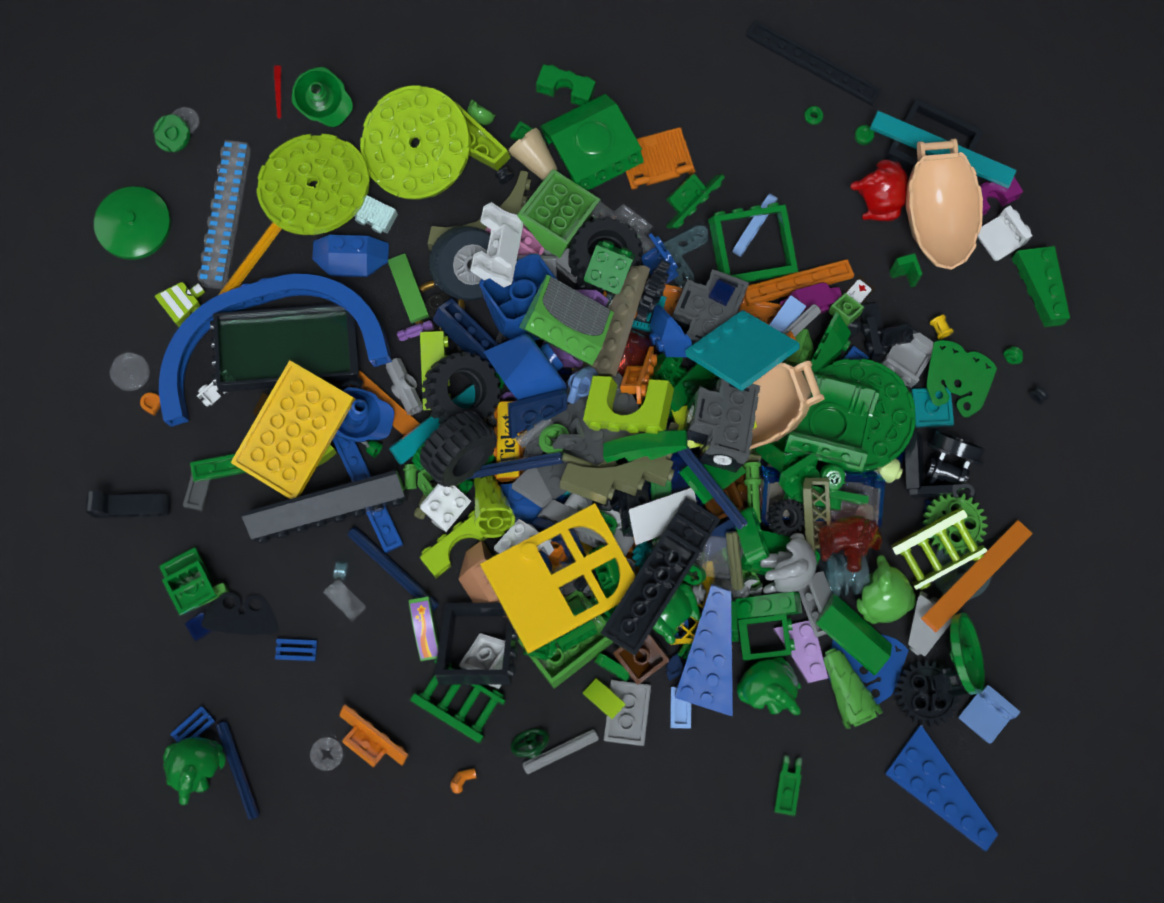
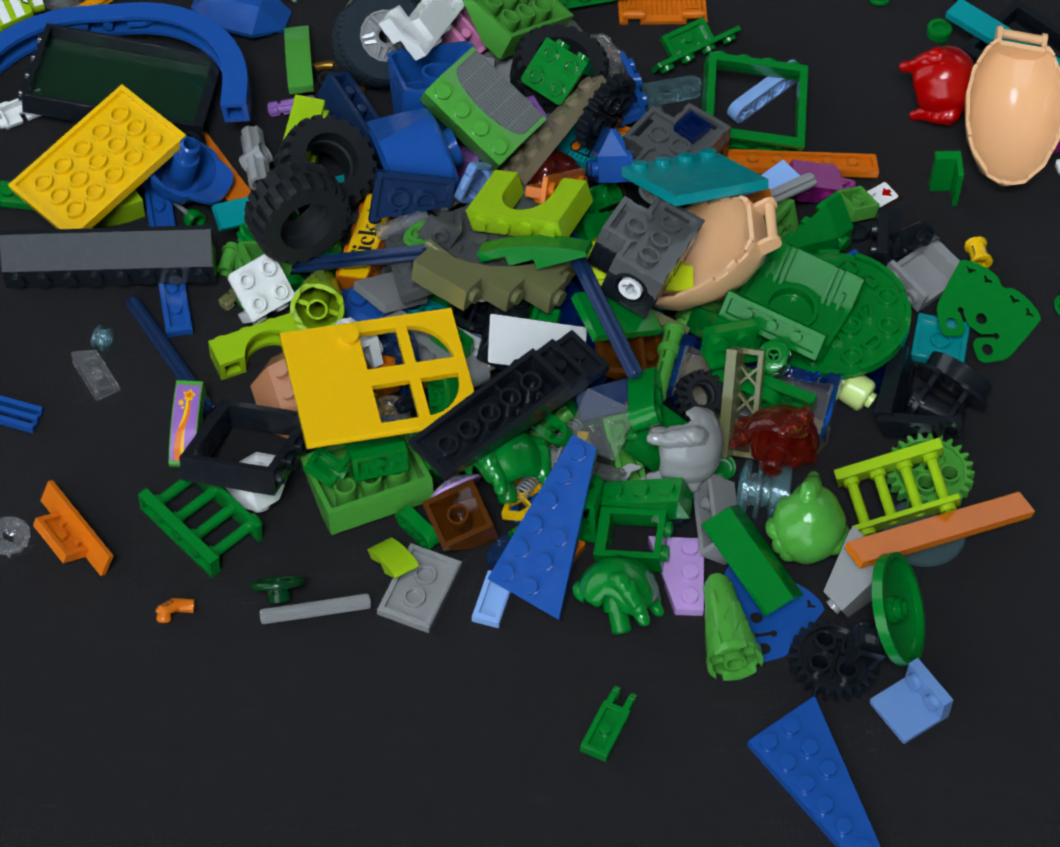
camera: 15 degrees right, 20 degrees down
(734, 560) = (616, 428): olive axle -> none

